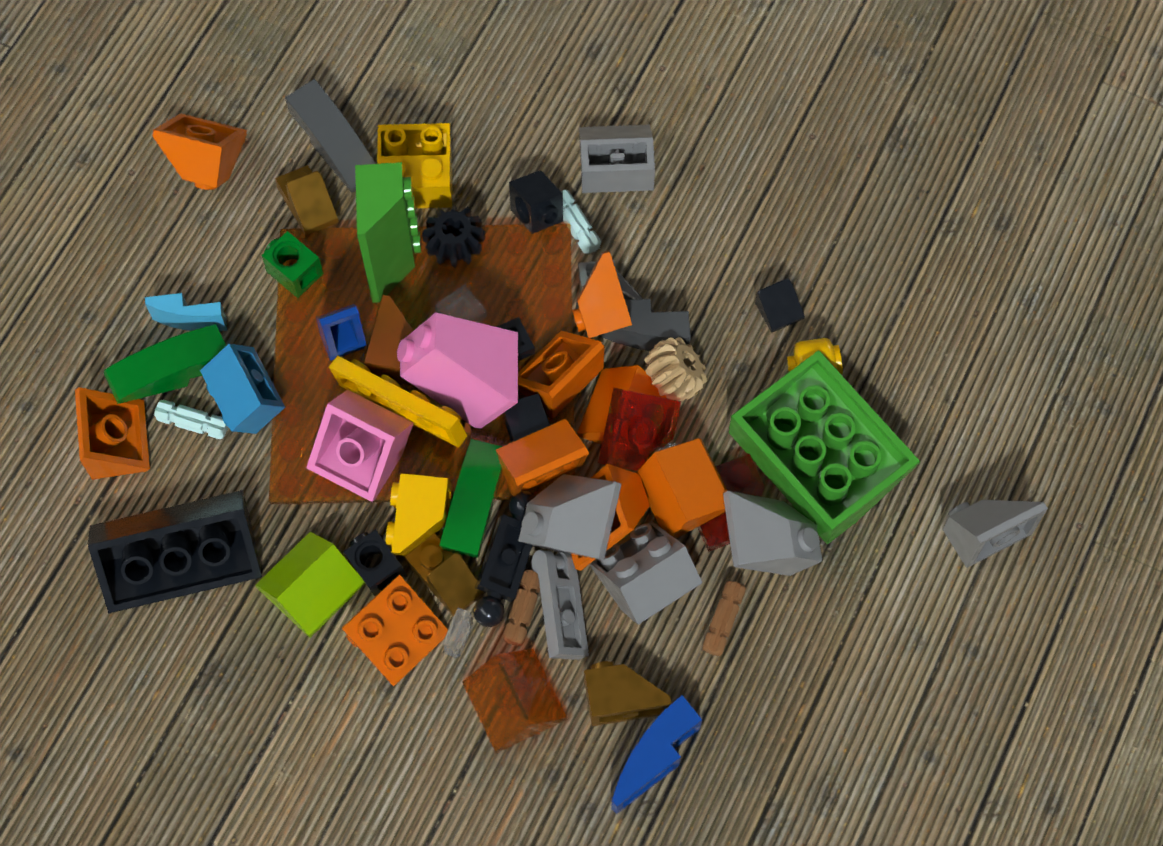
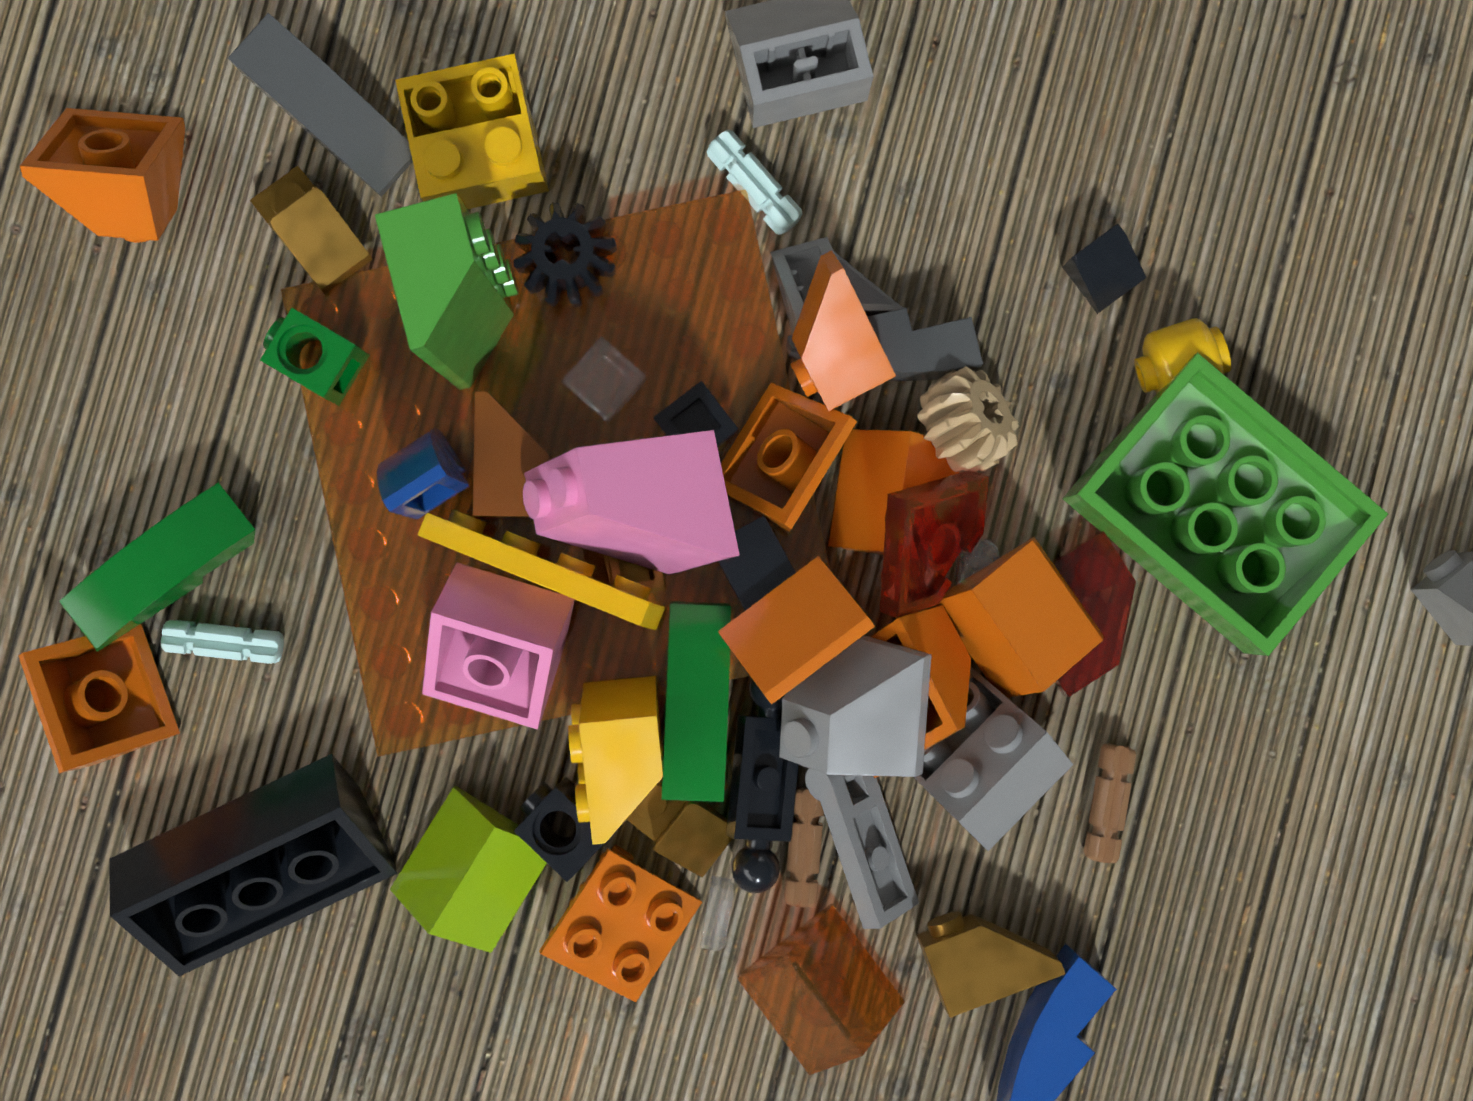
camera: 15 degrees left, 20 degrees up
(174, 312) = (156, 467): medium azure slope -> none
(242, 389) = (288, 585): dark azure brick -> none
(536, 201) = (685, 165): black brick -> none
(770, 535) = (1167, 668): light grey slope -> none

